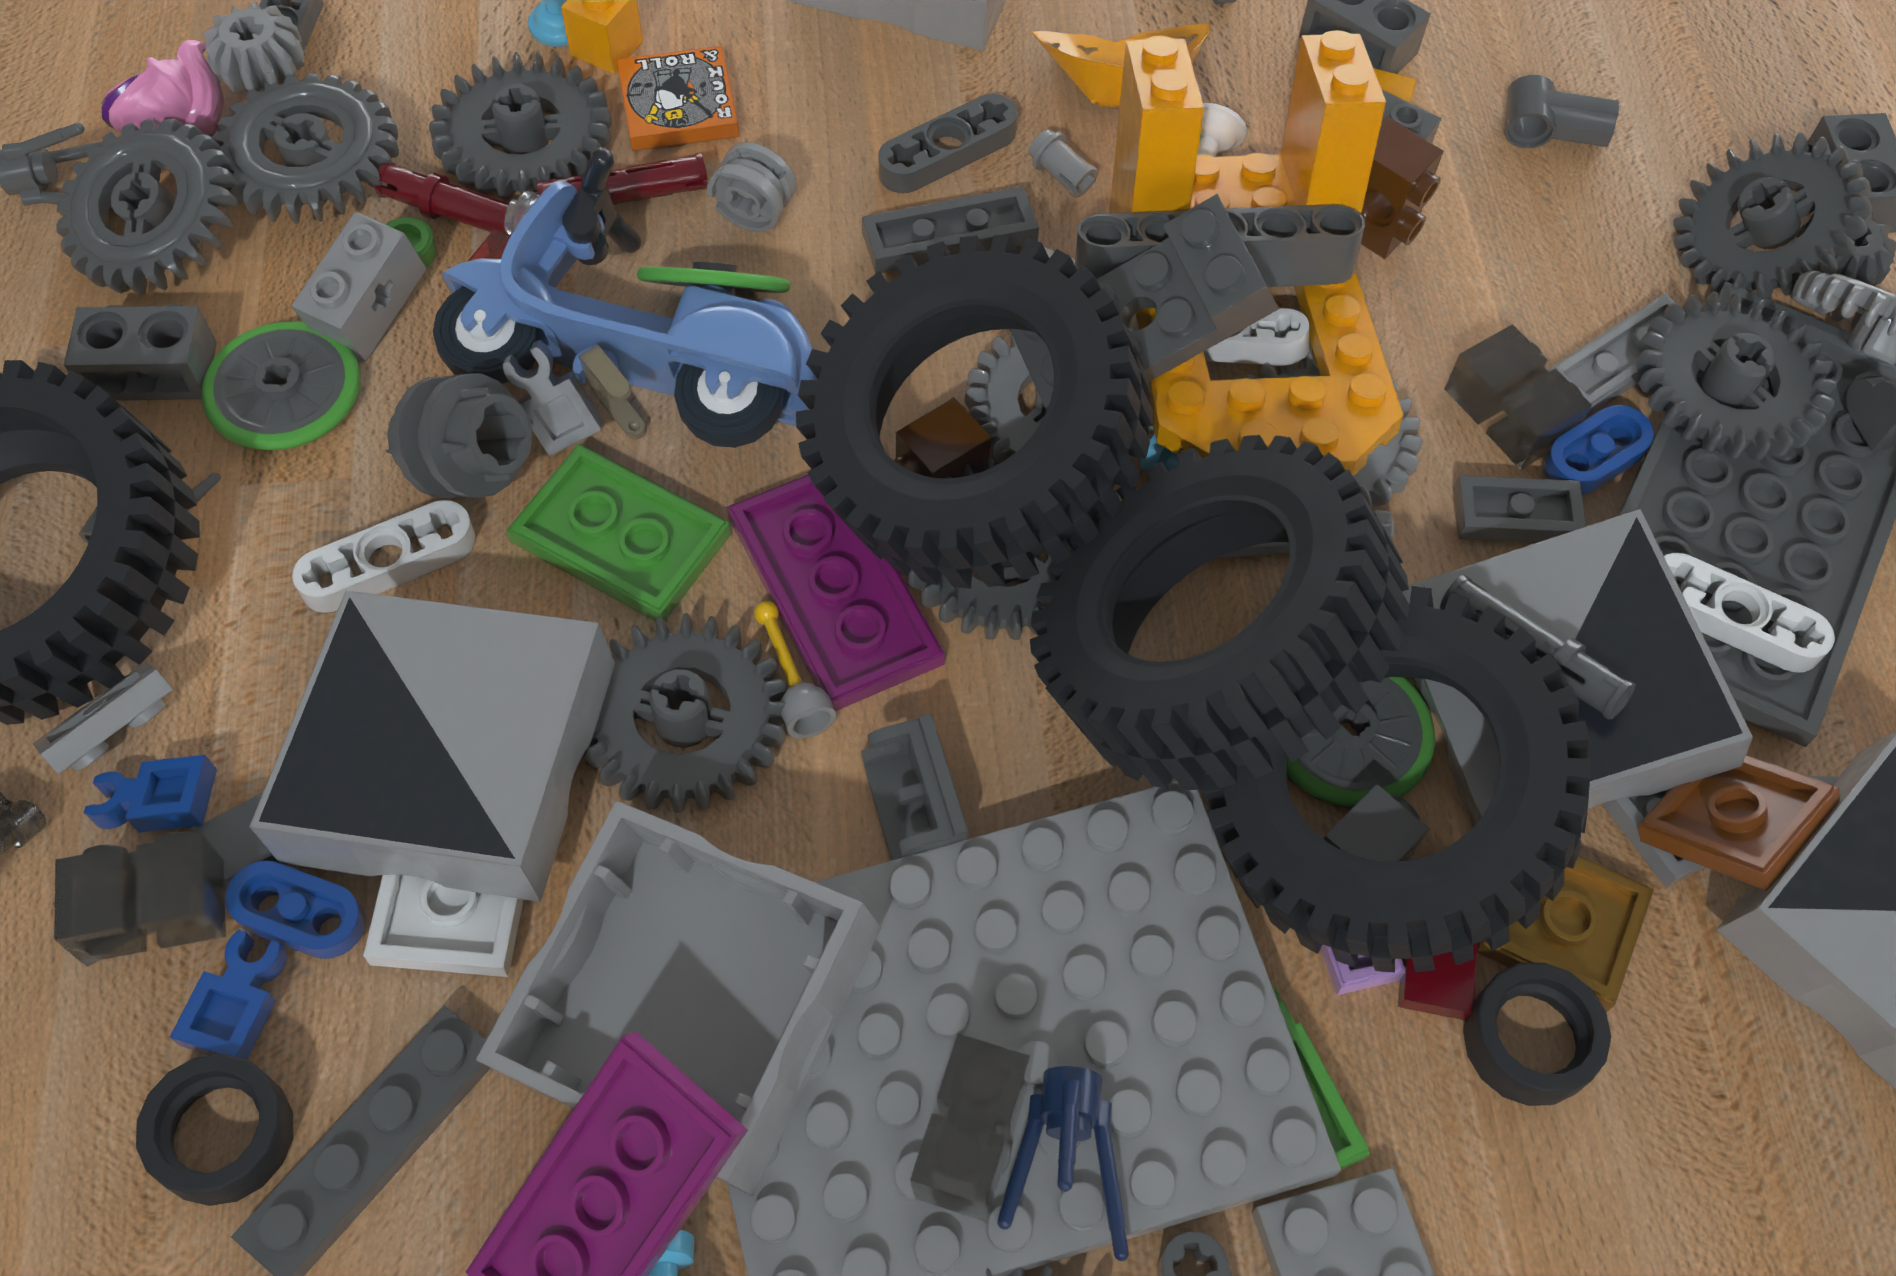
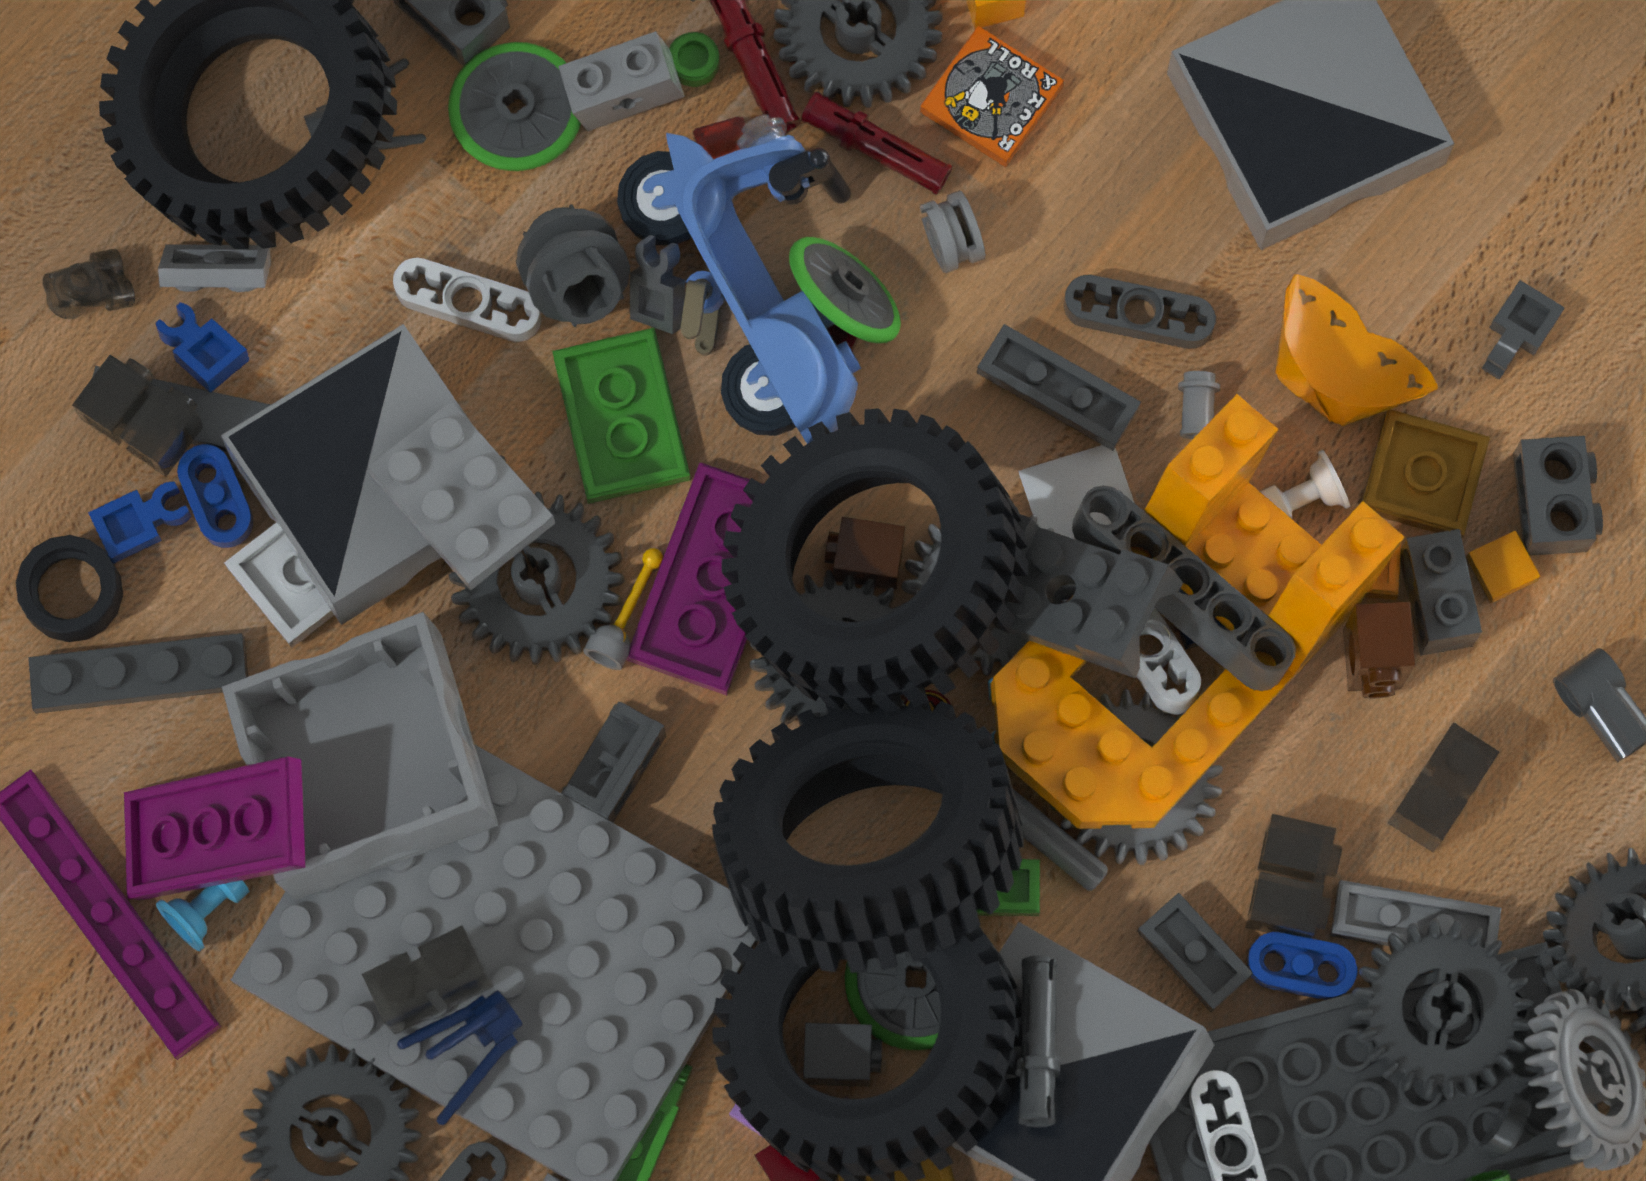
camera: 50 degrees right, 15 degrees up
(550, 667) = (461, 495): none -> light grey plate
(1252, 82) = (1425, 473): none -> pearl gold tile
(1539, 253) = (1438, 799): none -> clear smoke piece

